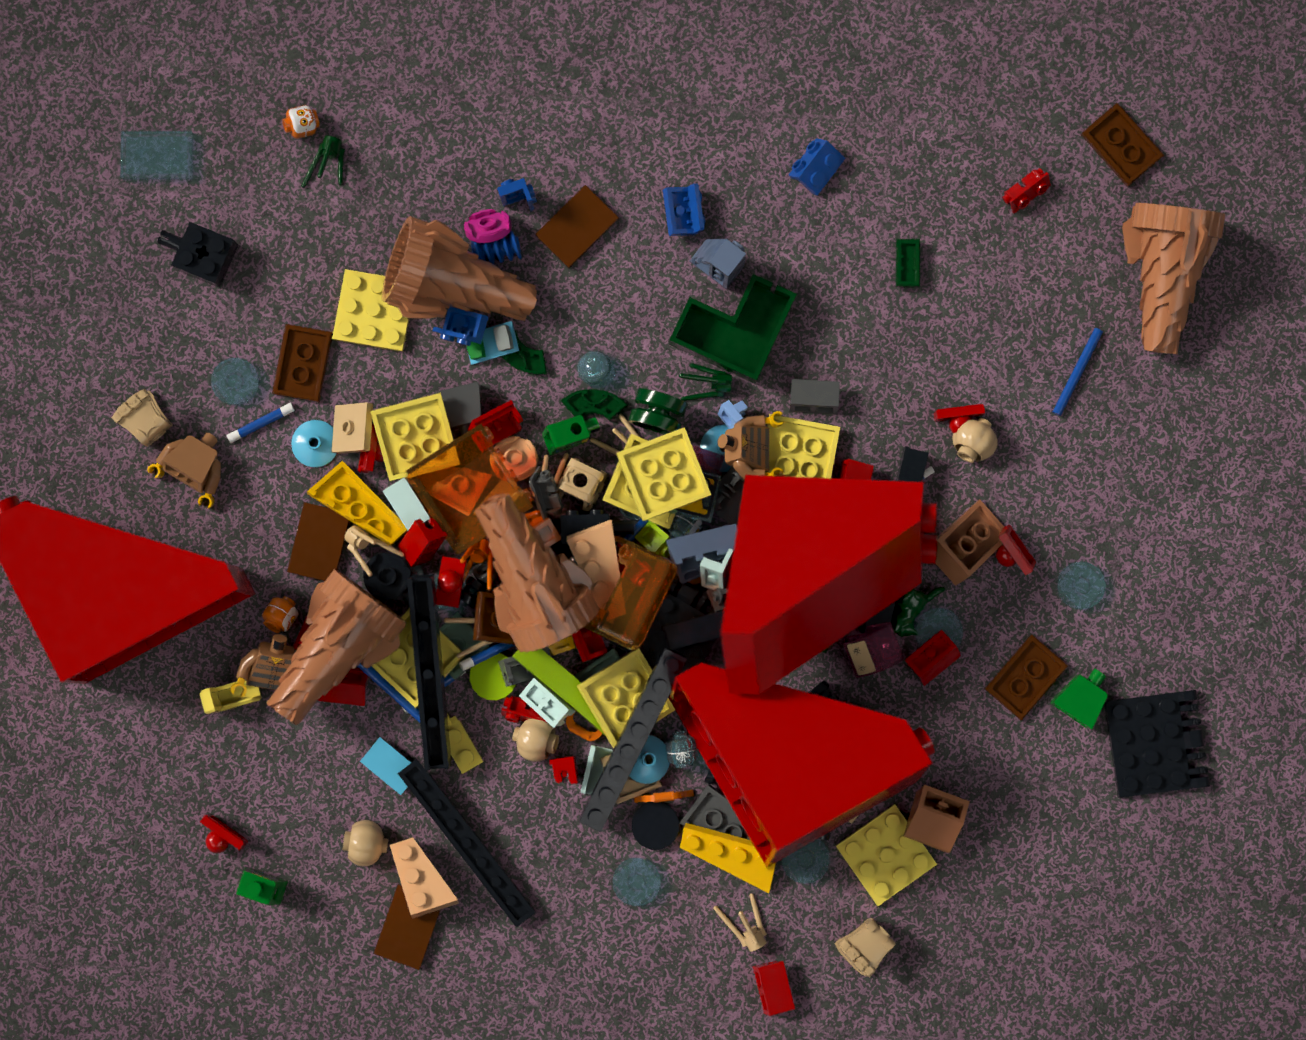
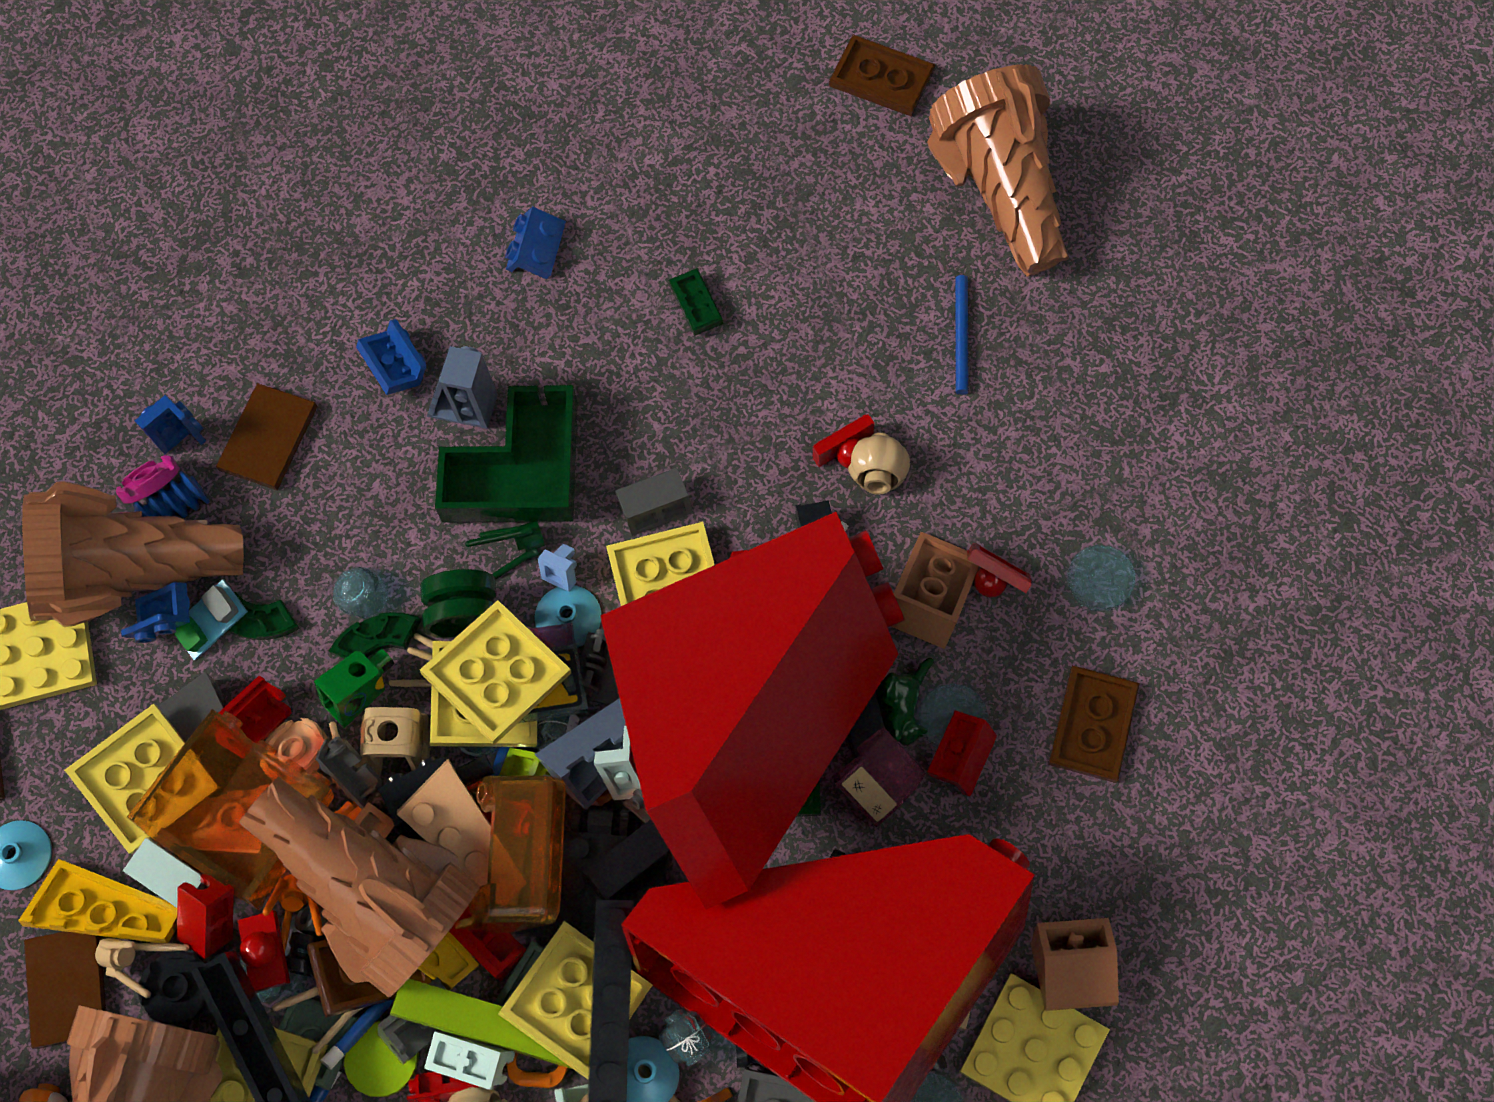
camera: 25 degrees left, 15 degrees down
(352, 428) = (55, 809): tan plate -> none
(366, 459) = (91, 829): red tile -> none
(748, 445) = (592, 586): medium nougat torso -> none
(1035, 184) = (803, 156): red hinge -> none
(1082, 698) = (1181, 716): green torso -> none
(1151, 744) = (1299, 734): black hinge -> none

